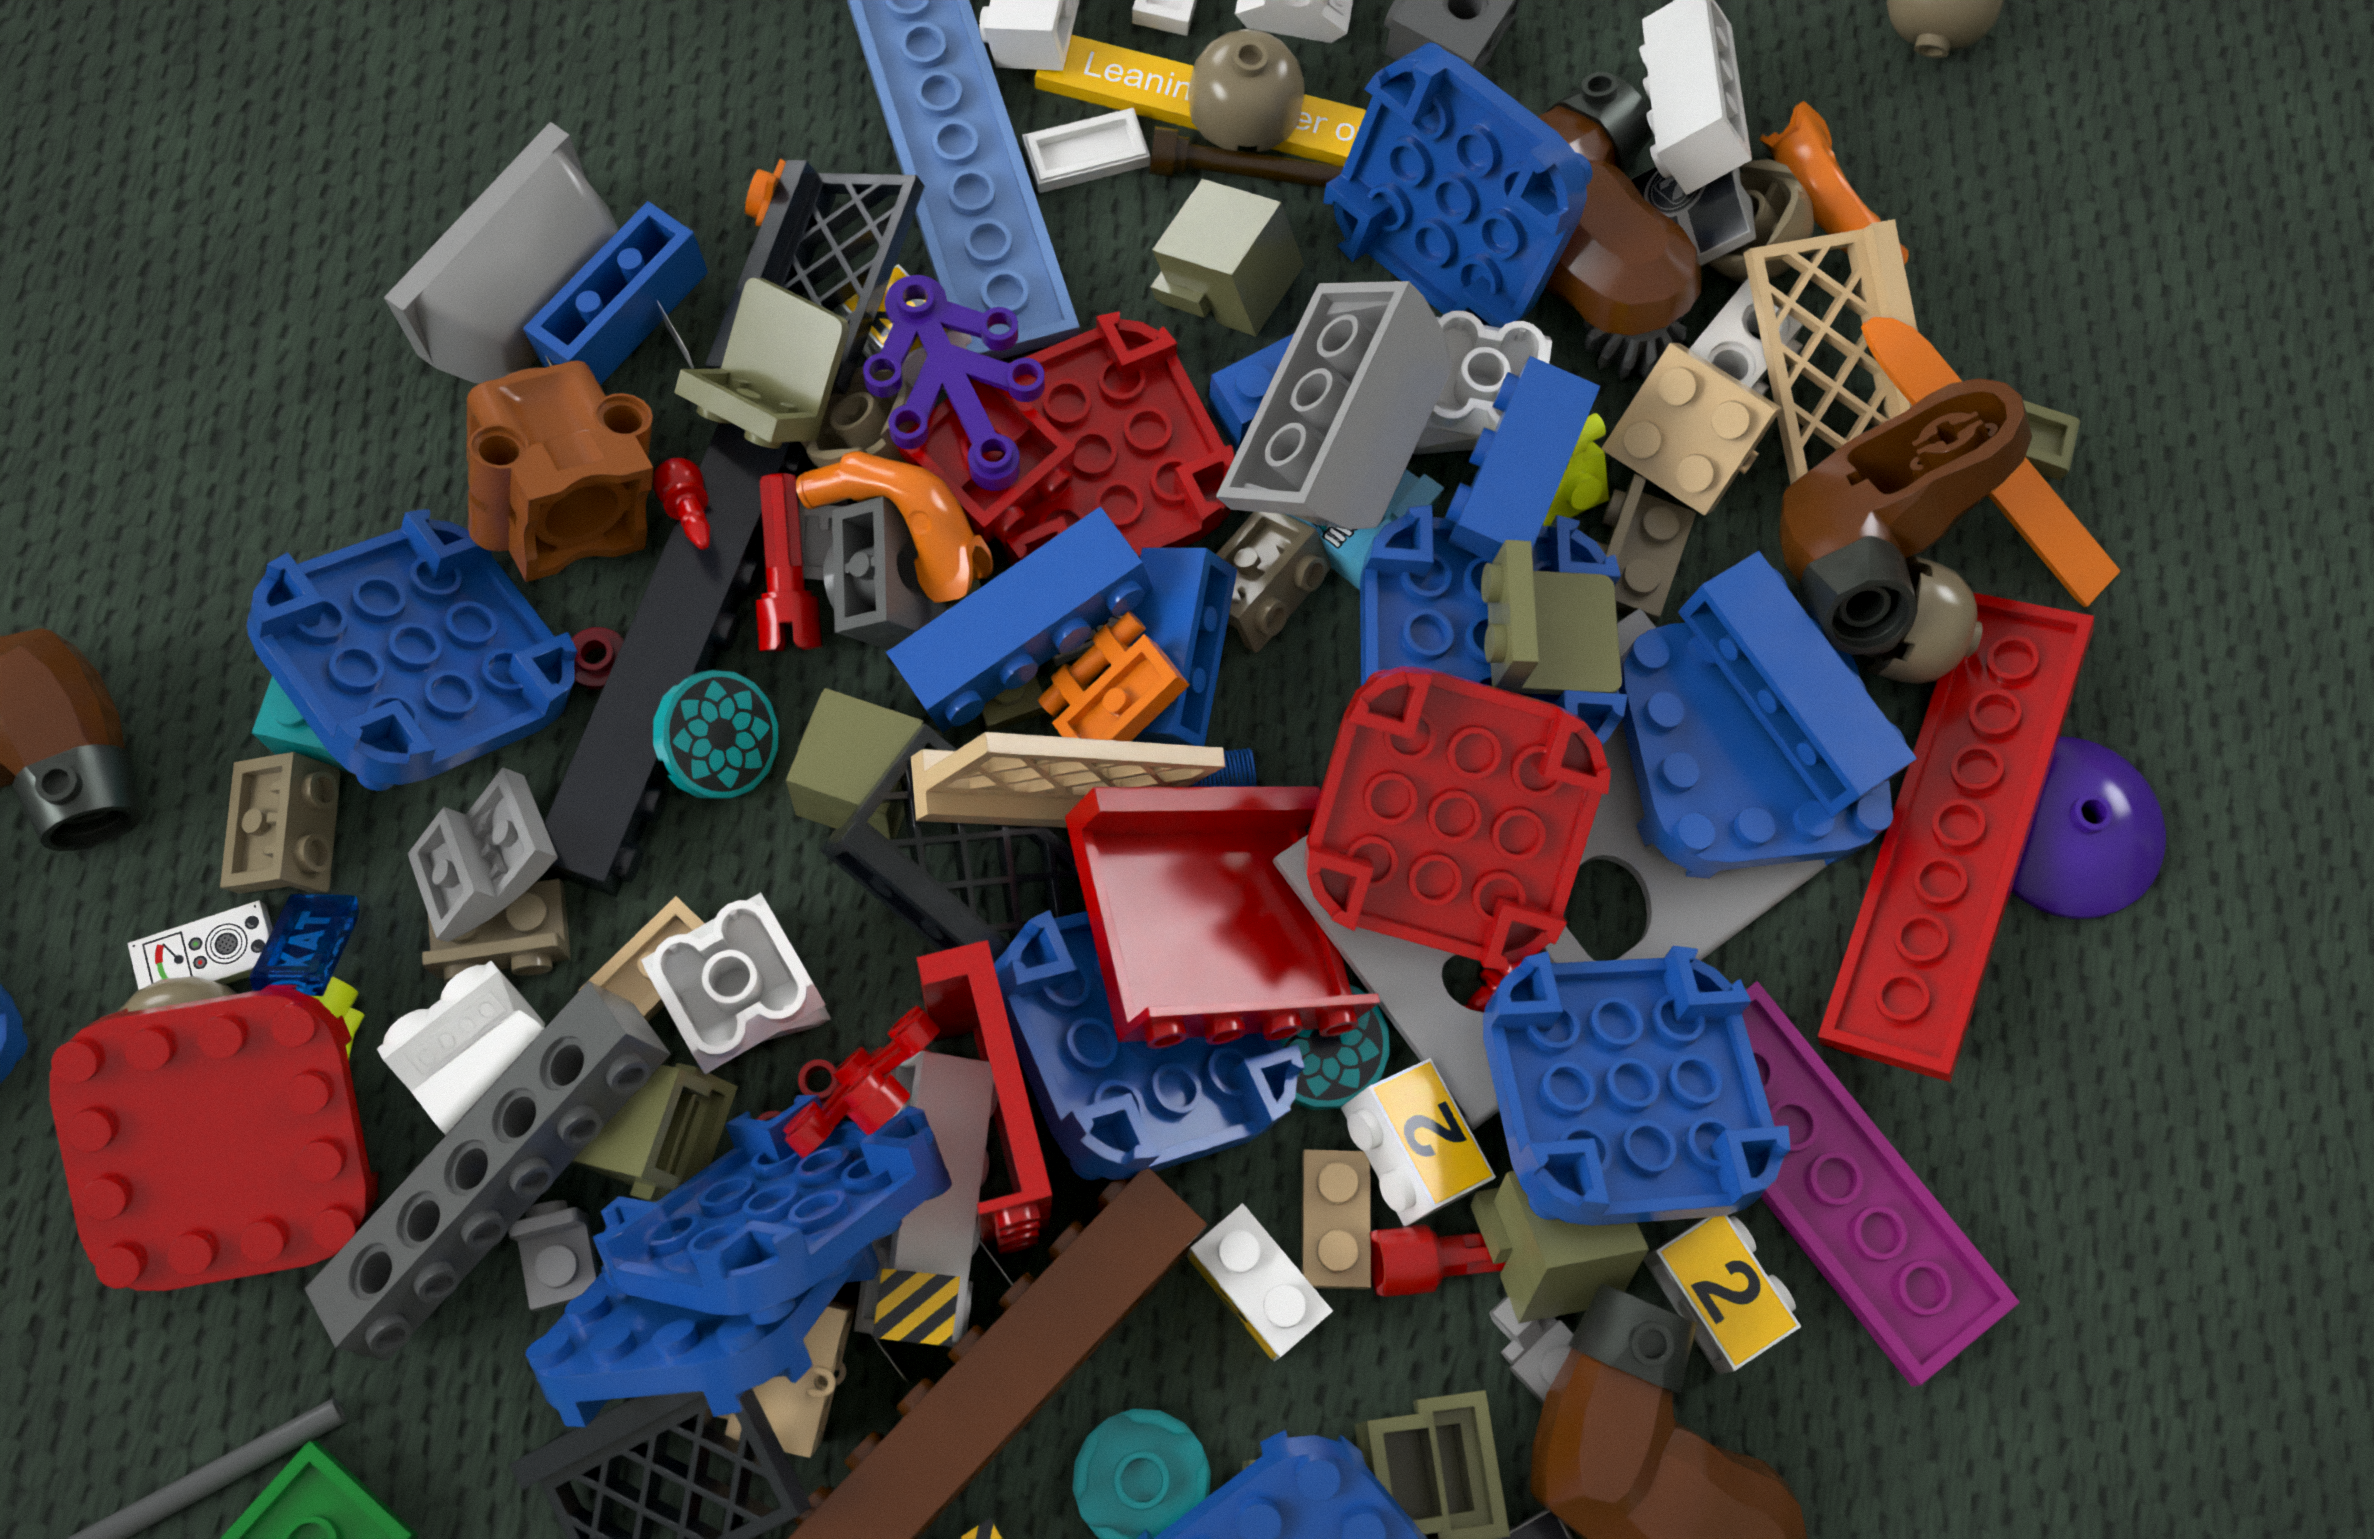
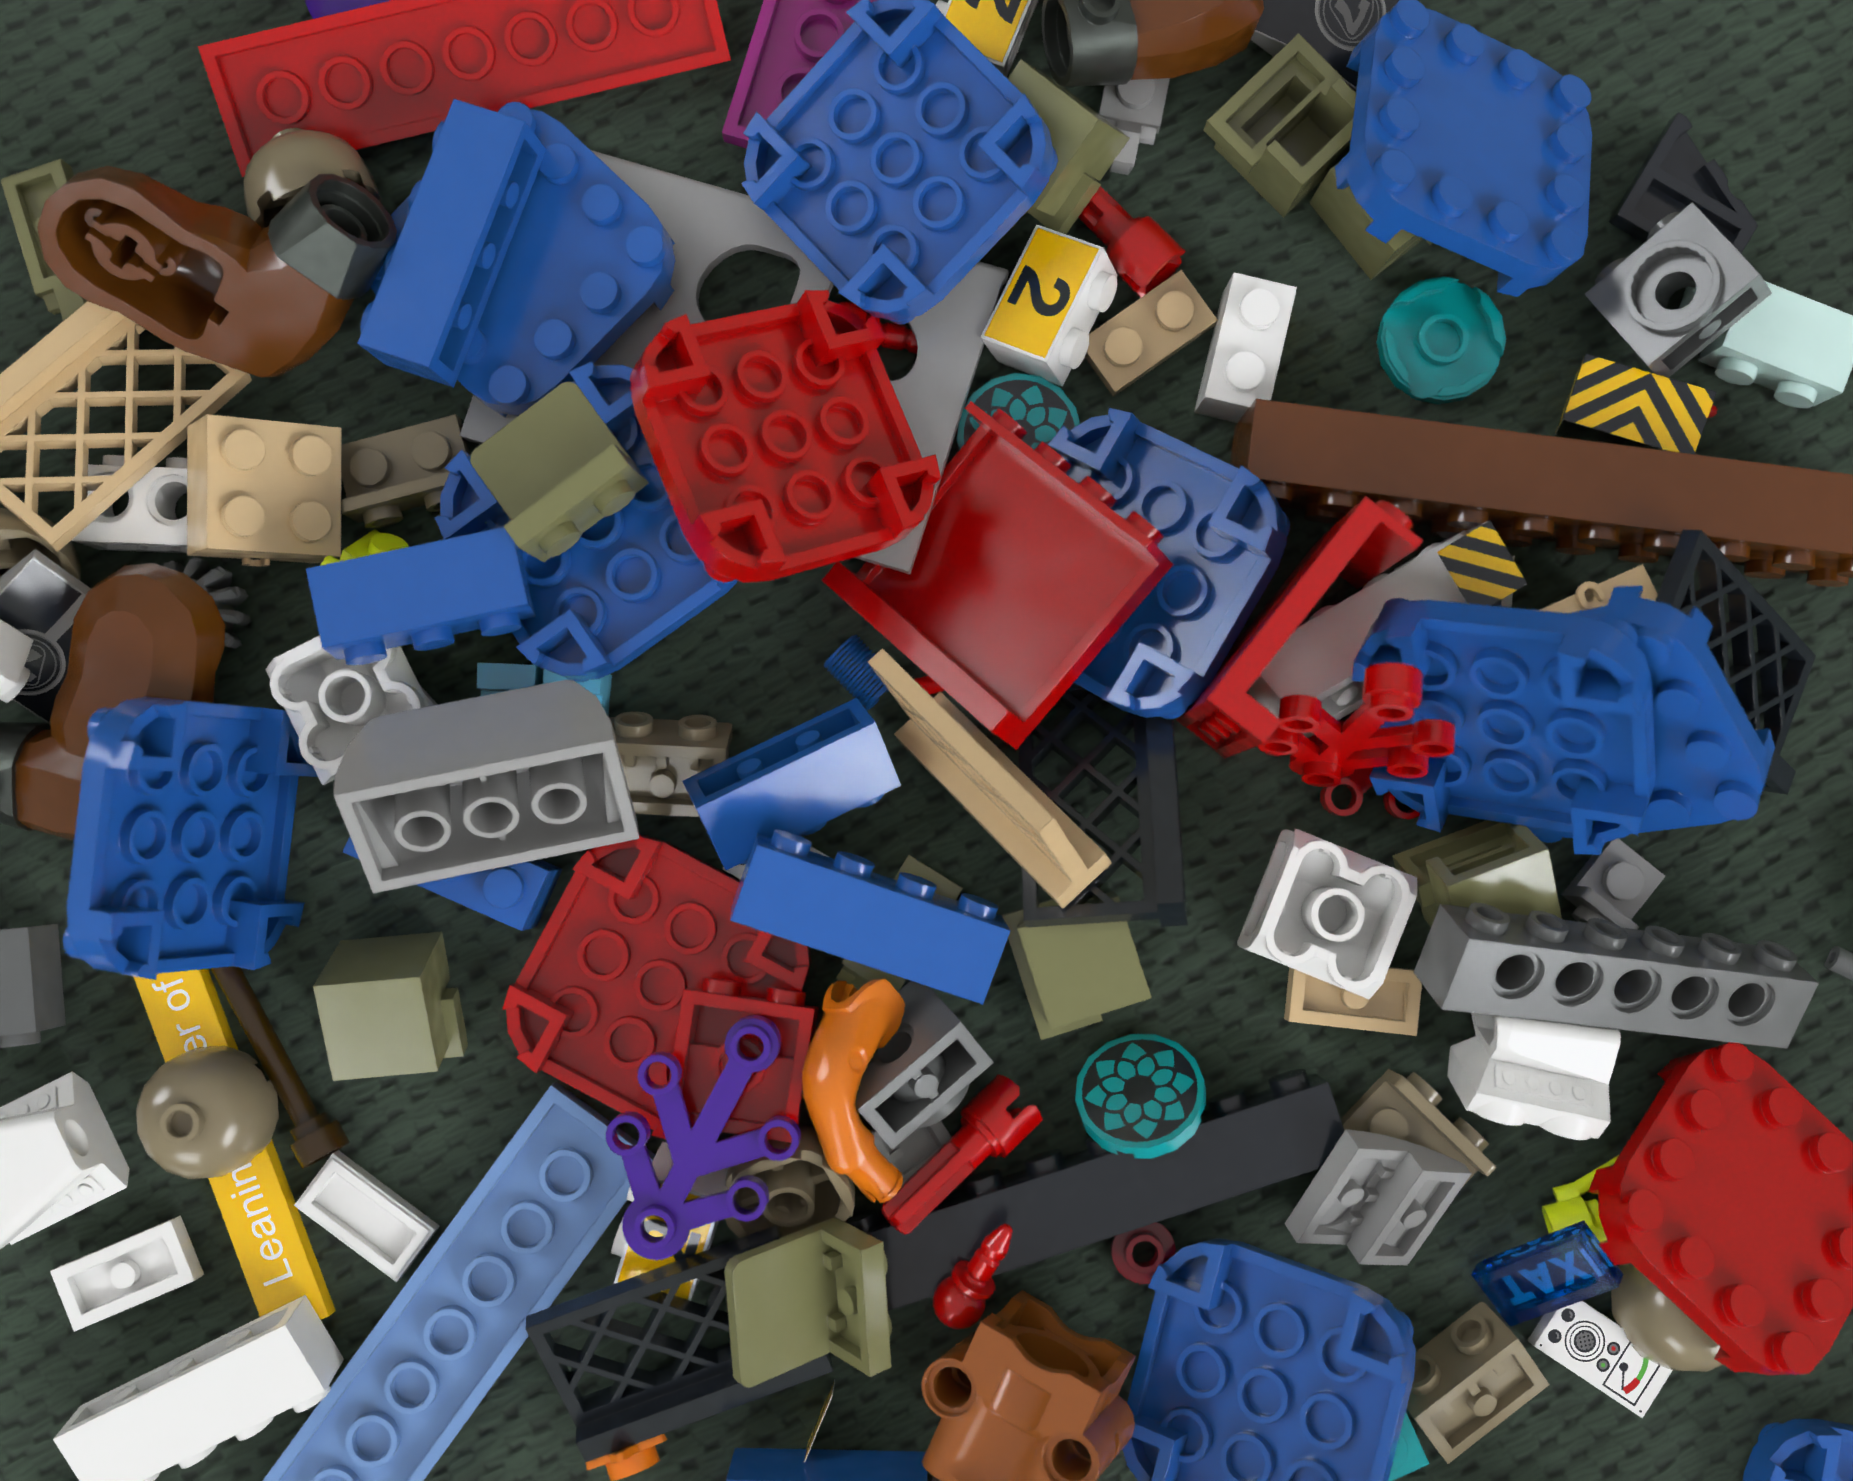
camera: 120 degrees left, 15 degrees up
(1124, 696) = (876, 782): orange plate -> none
(2024, 495) = (128, 141): orange piece -> none

